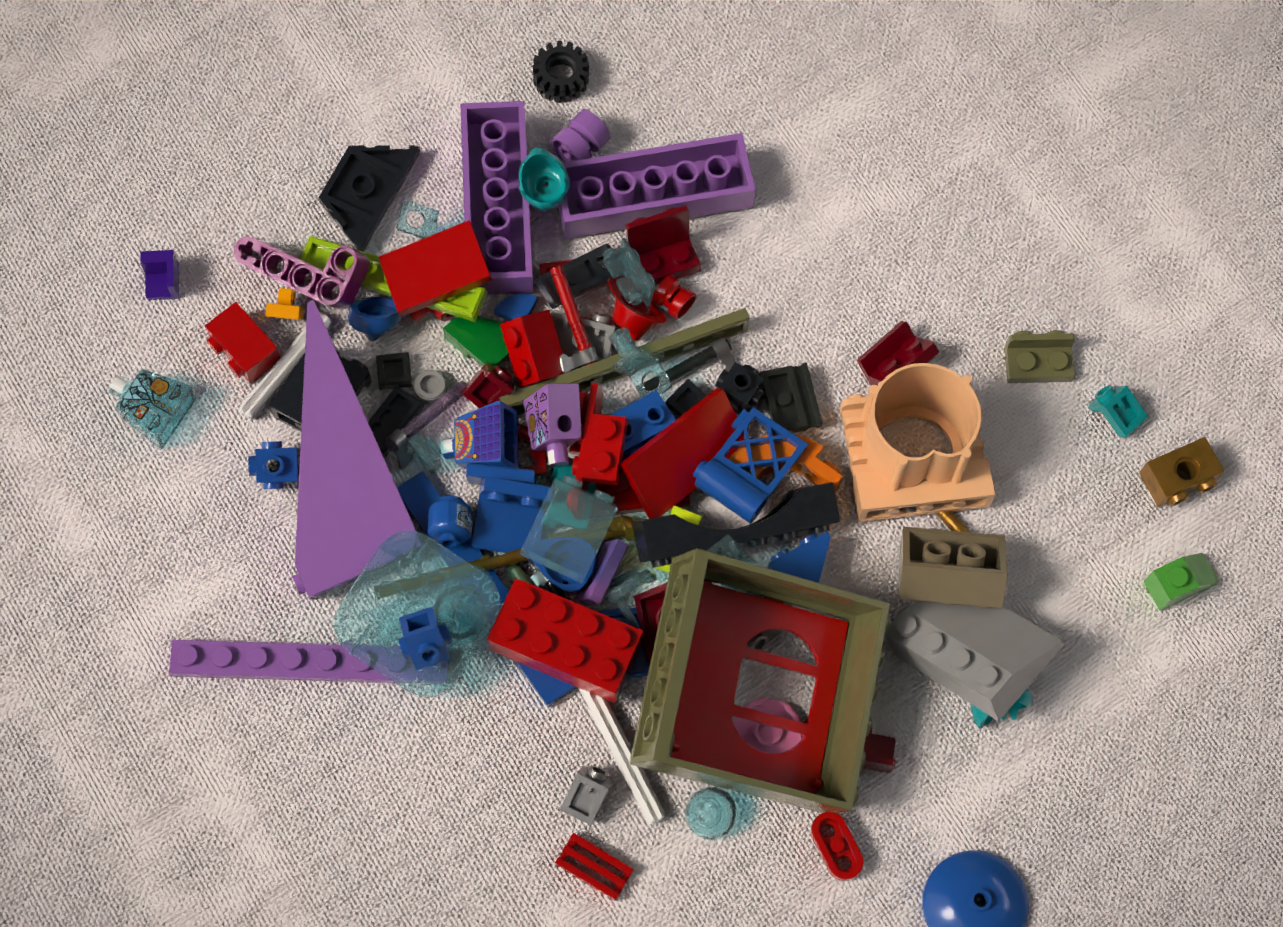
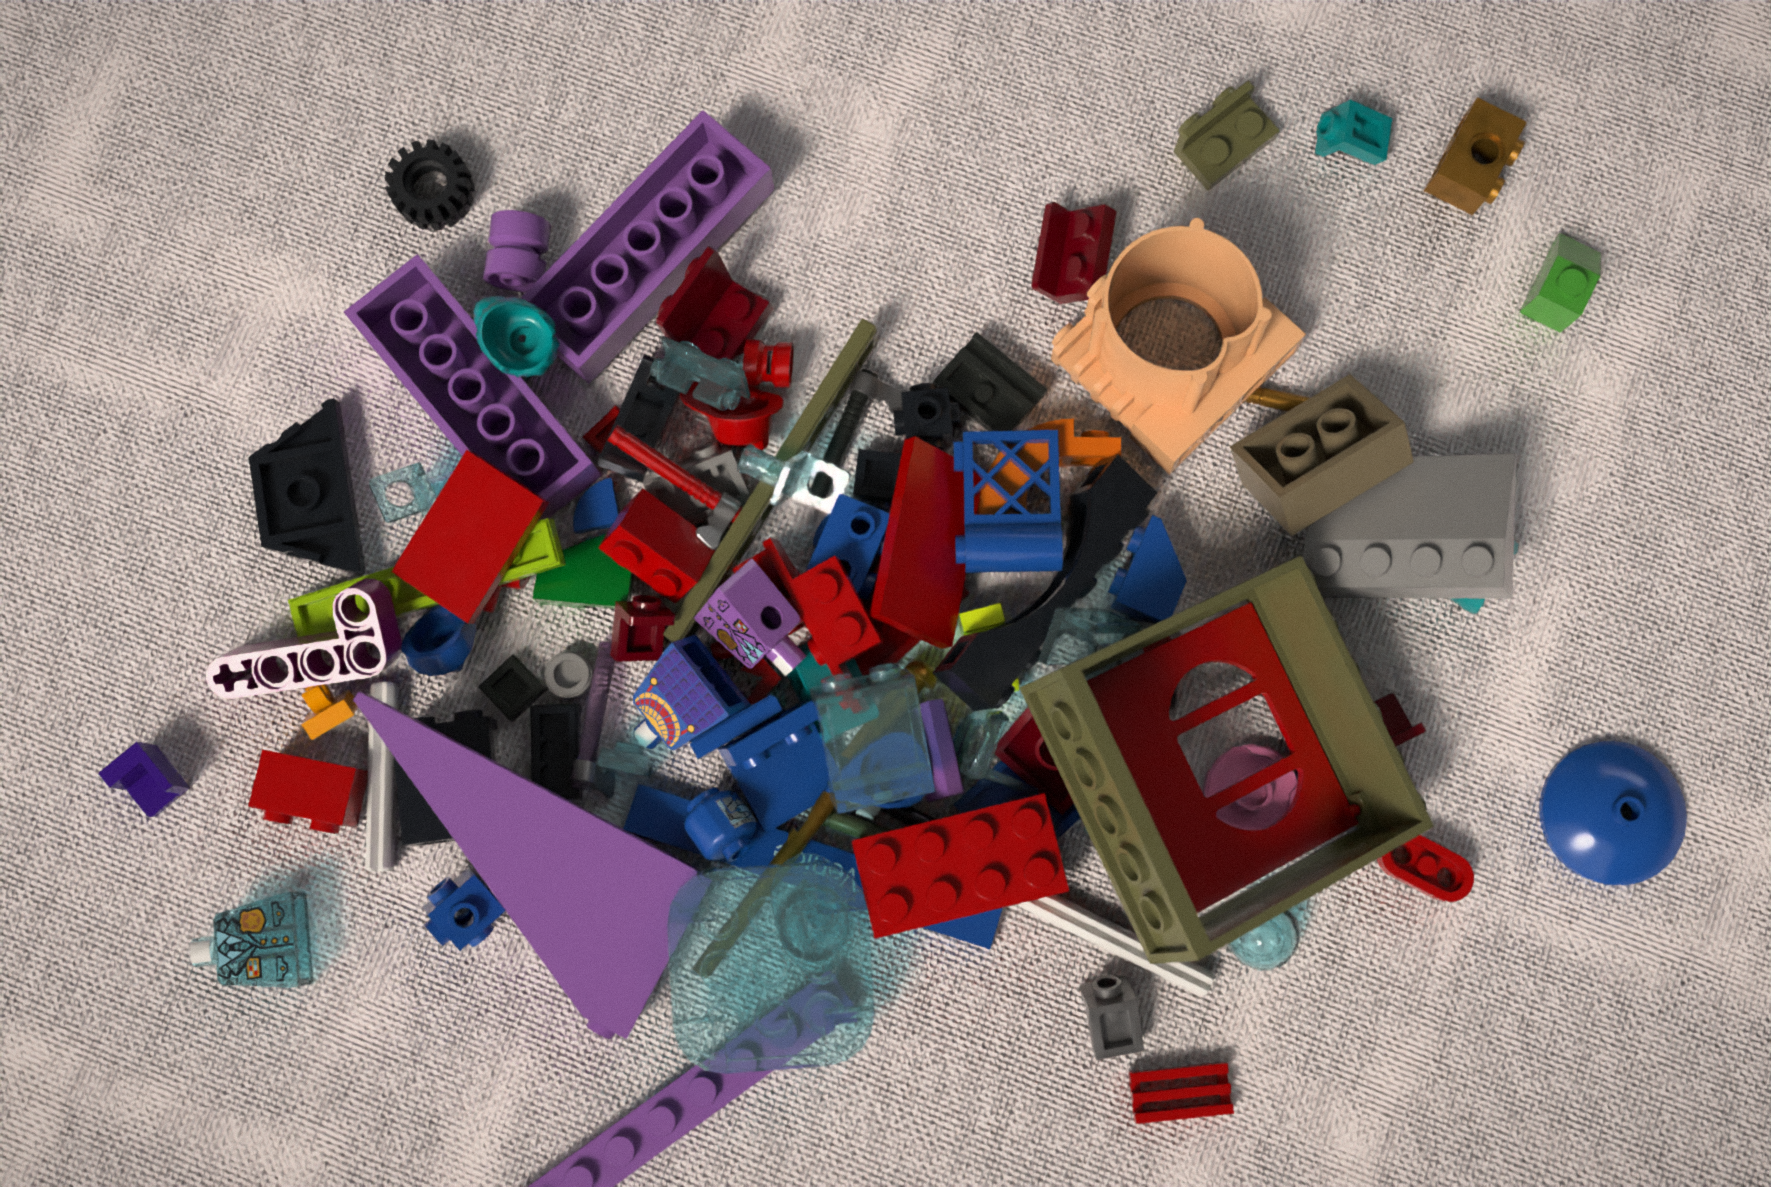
camera: 30 degrees left, 10 degrees up
(424, 638) = (808, 1000): blue brick -> none

